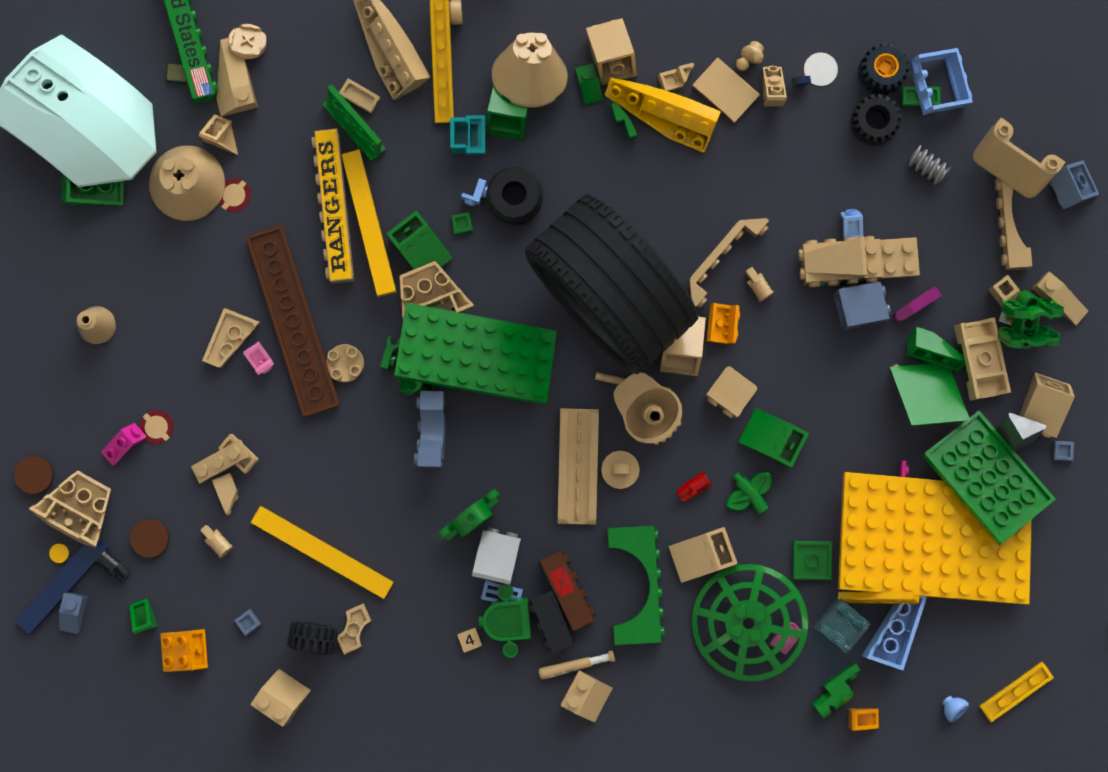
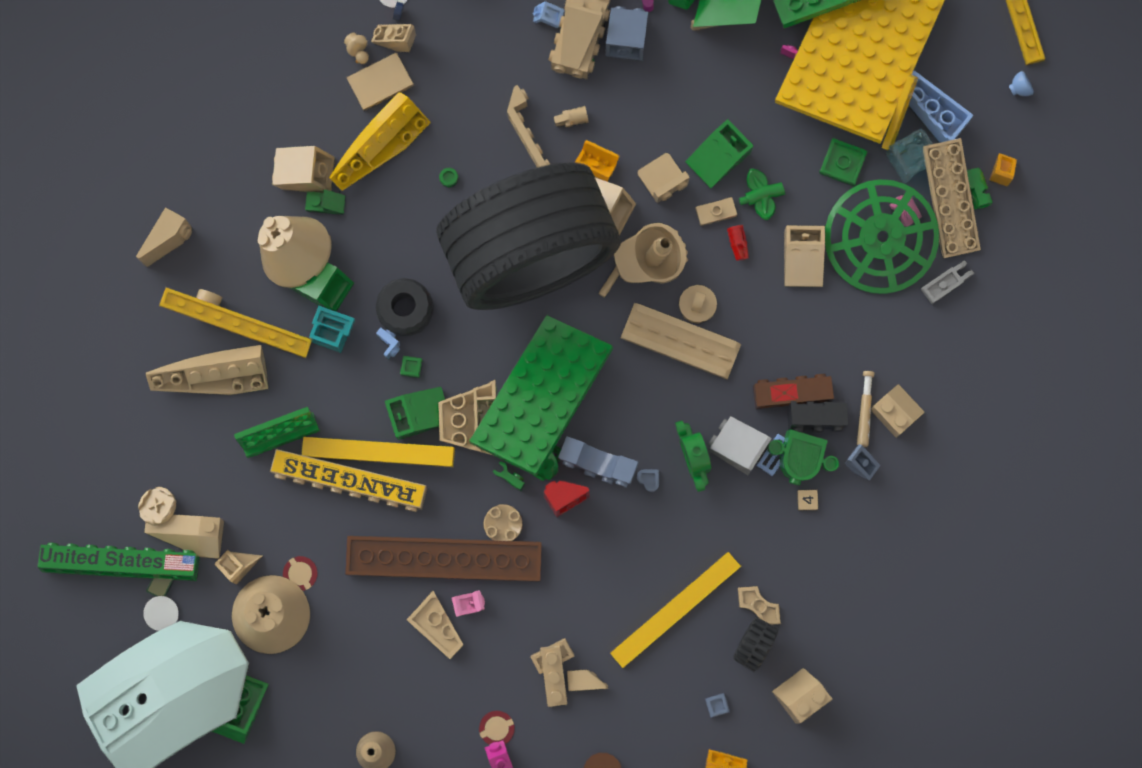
camera: 70 degrees left, 5 degrees down
(152, 83) = (160, 612): none -> white sticker
(216, 541) = (629, 707): tan hinge -> none
(359, 96) = (252, 417): tan tile -> none
(385, 407) = (564, 496): none -> red slope
(435, 484) = (649, 479): none -> sand blue tile
(520, 679) = (862, 463): none -> sand blue slope
(621, 117) = (367, 184): green slope -> none
(646, 624) = (850, 330): green arch -> none
(656, 190) = (448, 177): none -> green tile
(675, 78) = (350, 122): tan slope -> none
(717, 455) = (716, 211): none -> tan plate
(727, 700) = (945, 283): none -> light grey hinge
(812, 677) = (951, 197): none -> tan plate

